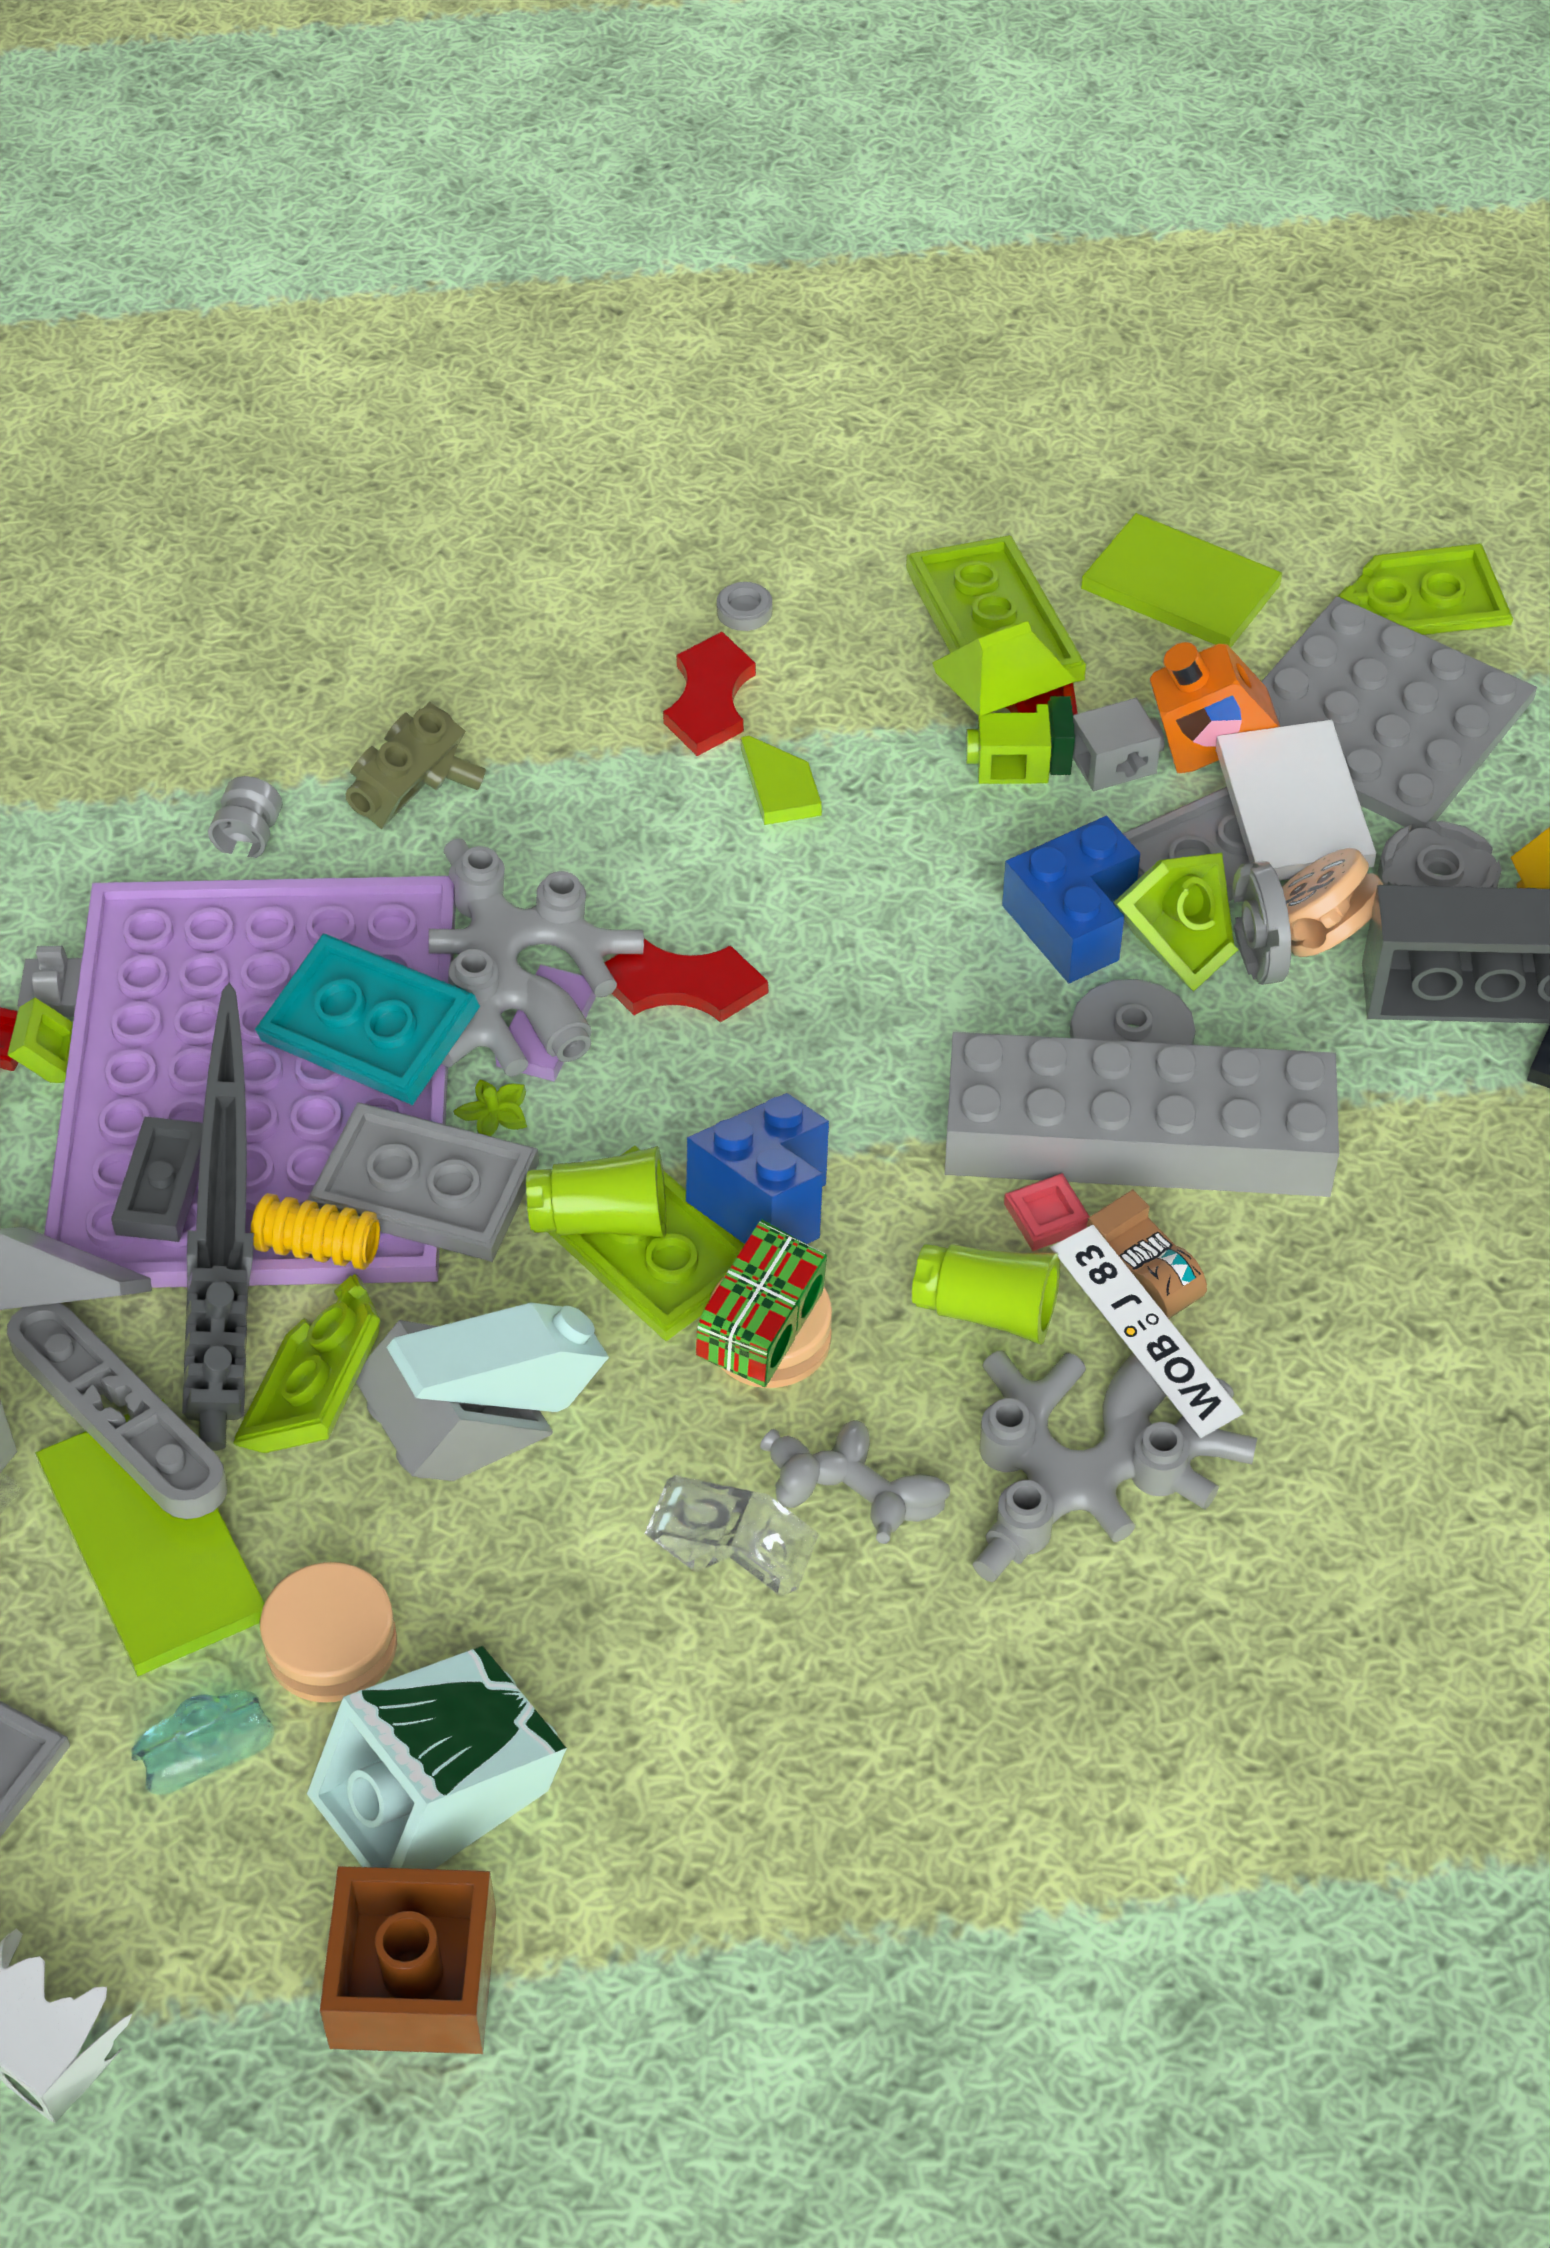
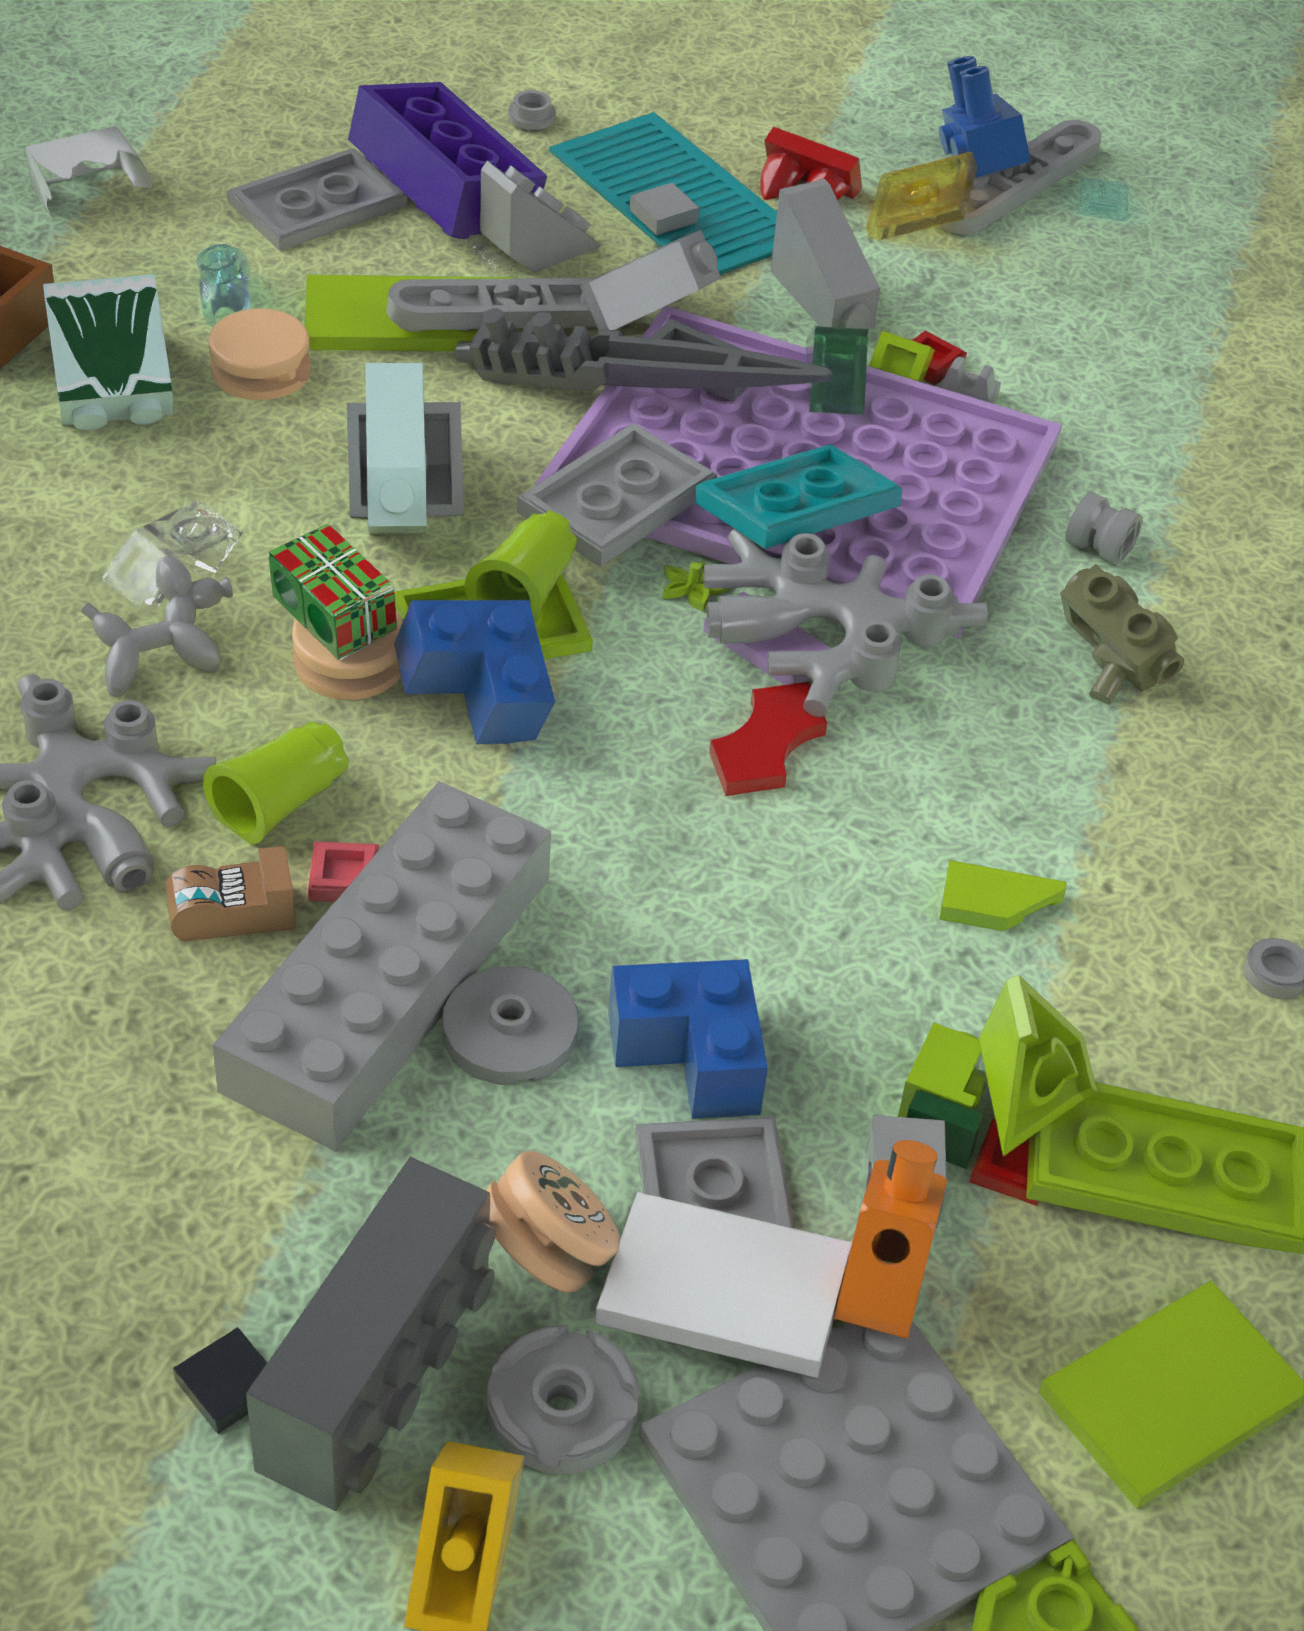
camera: 110 degrees right, 5 degrees down
(105, 1065) = (845, 355): none -> clear green slope
(312, 1374) = (479, 398): lime tile -> none
(315, 1231) = (595, 414): yellow piece -> none
(706, 708) = (1177, 905): red tile -> none
(1147, 1331) = (148, 846): white sticker -> none
(1183, 915) = (611, 1095): lime slope -> none
(1264, 927) = (556, 1127): light grey tile -> none

